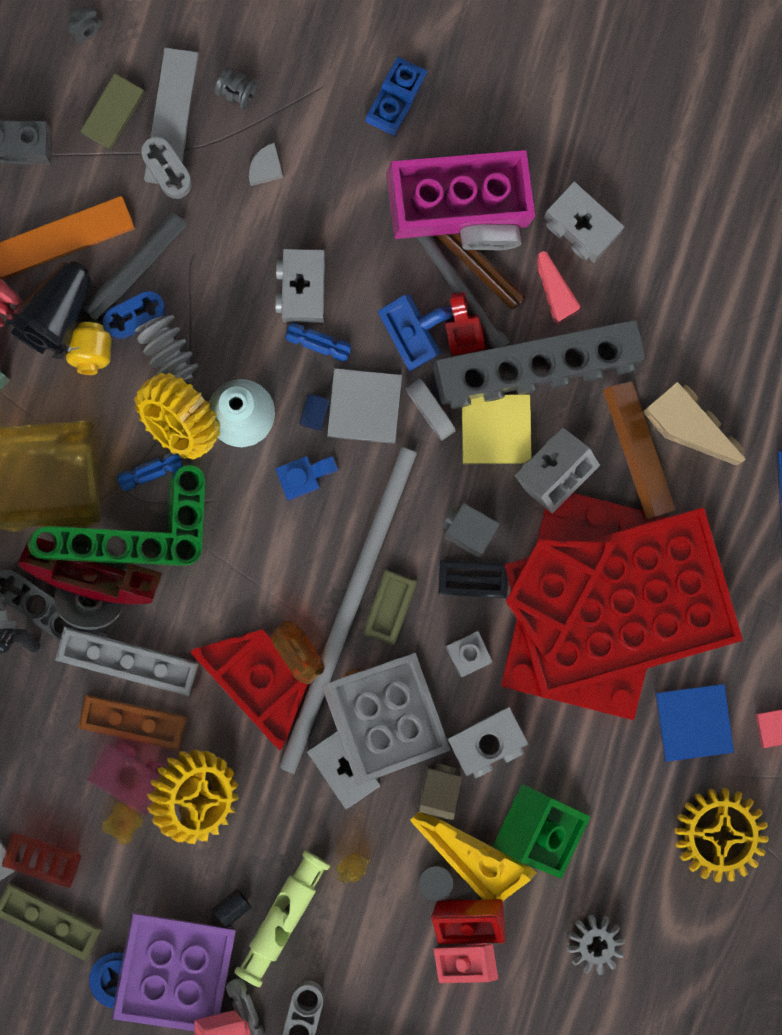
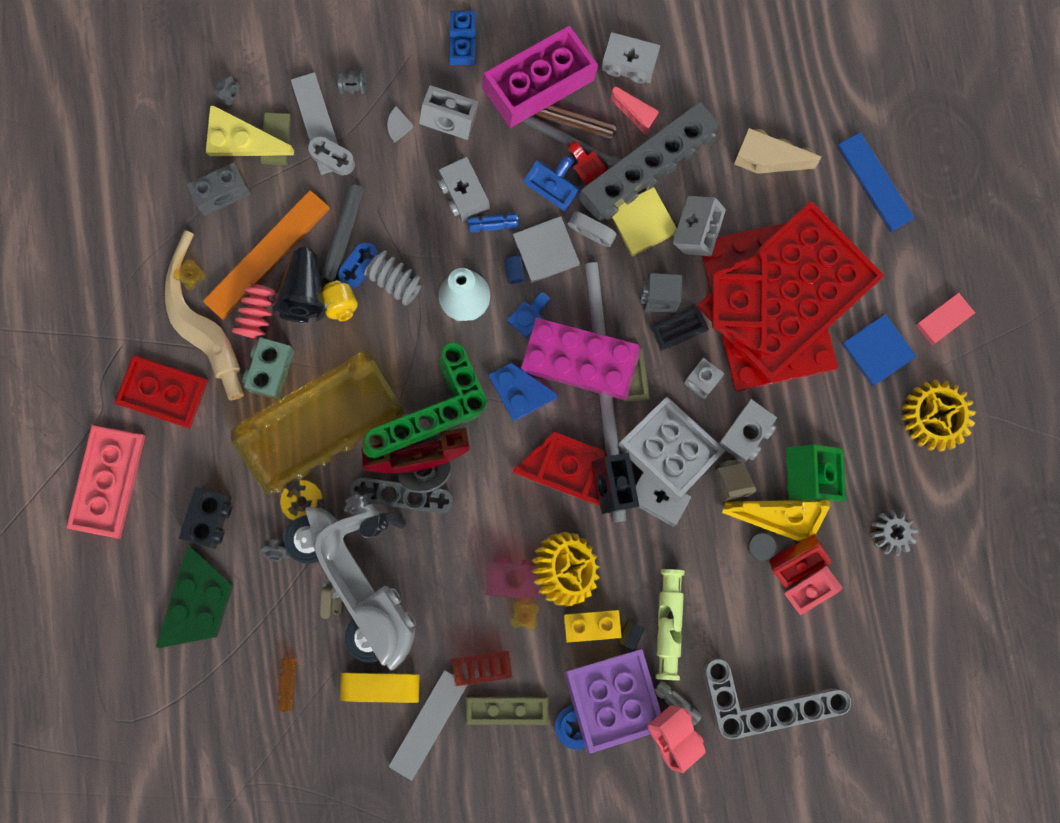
camera: 20 degrees left, 5 degrees down
(63, 86) = (237, 138): none -> light yellow wing
(126, 661) = (471, 500): light grey tile -> none
(132, 722) = (496, 541): dark orange tile -> none
(149, 471) = (421, 364): blue axle -> none
(177, 415) = (423, 313): yellow gear -> none
(191, 875) = (592, 626): none -> yellow brick
(248, 560) = (520, 391): none -> blue wing
(297, 652) = (586, 435): clear orange beam -> none
(298, 728) = (615, 483): none -> black brick
(330, 184) = (448, 112): none -> light grey brick
(335, 561) = (581, 359): none -> dark pink brick
(352, 868) = (700, 565): clear yellow plate -> none
(490, 237) = (574, 96): light grey beam -> none
(639, 449) = (745, 187): dark orange tile -> none

